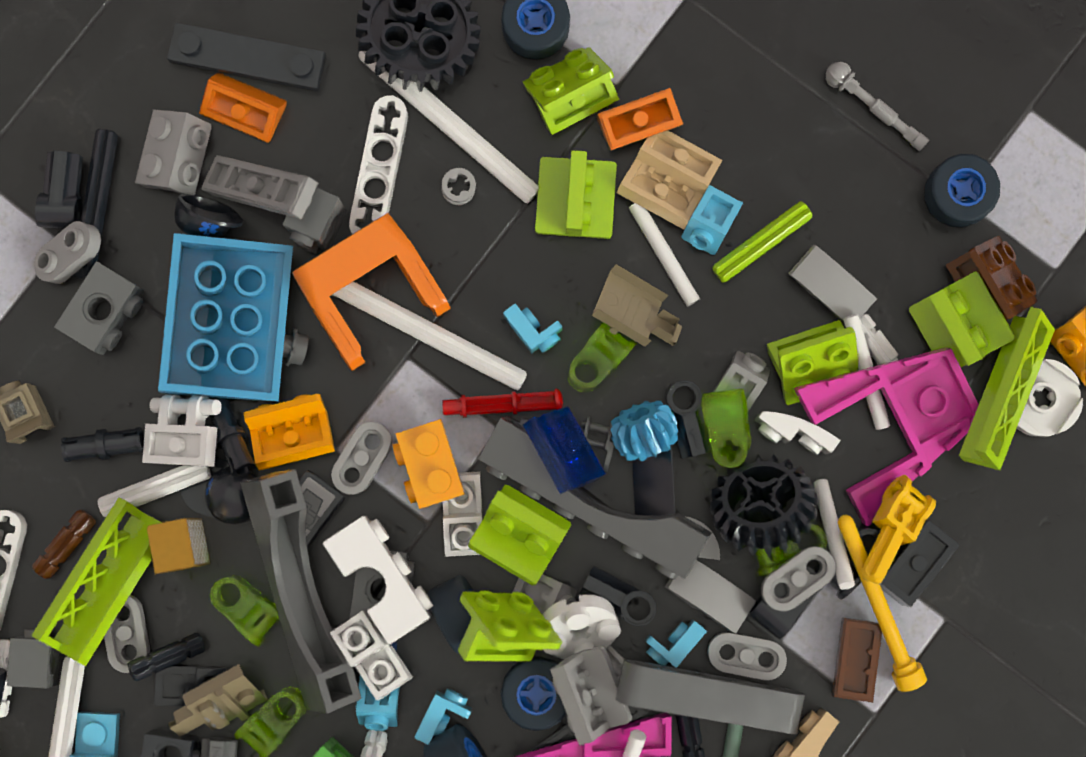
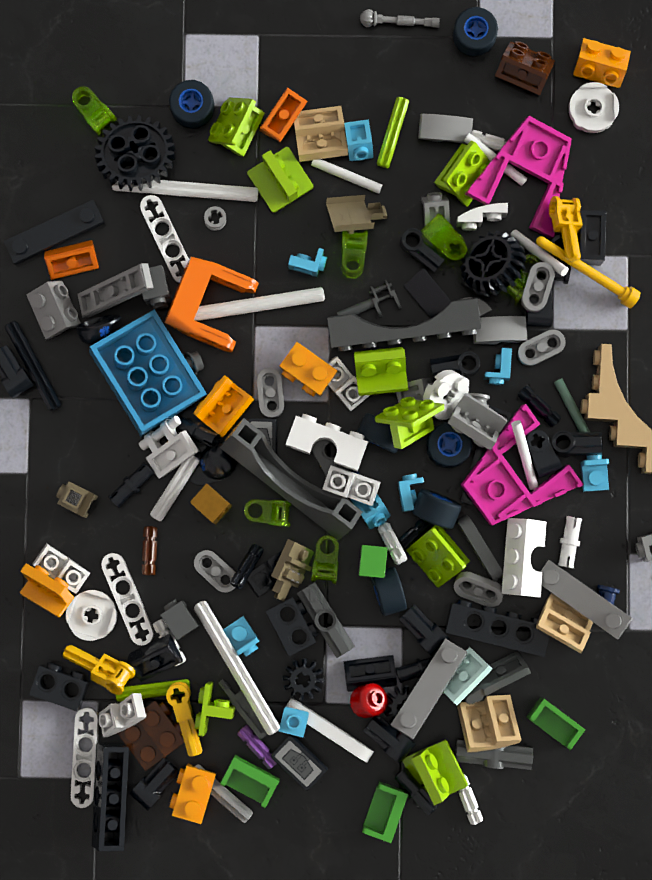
camera: 35 degrees left, 0 degrees up
(67, 252) = (38, 401): light grey plate -> none
(80, 319) = (69, 404): dark grey brick -> none
(106, 584) = (188, 551): lime fence -> none
(503, 403) = (321, 312): red piece -> none
(564, 449) = (371, 310): clear blue plate -> none
(644, 430) = (404, 271): dark azure gear -> none
(709, 697) = (537, 379): dark grey beam -> none
(857, 660) = (598, 308): reddish brown plate -> none
(963, 320) = (524, 97): lime bracket -> none
(1007, 391) = (573, 115): lime fence -> none

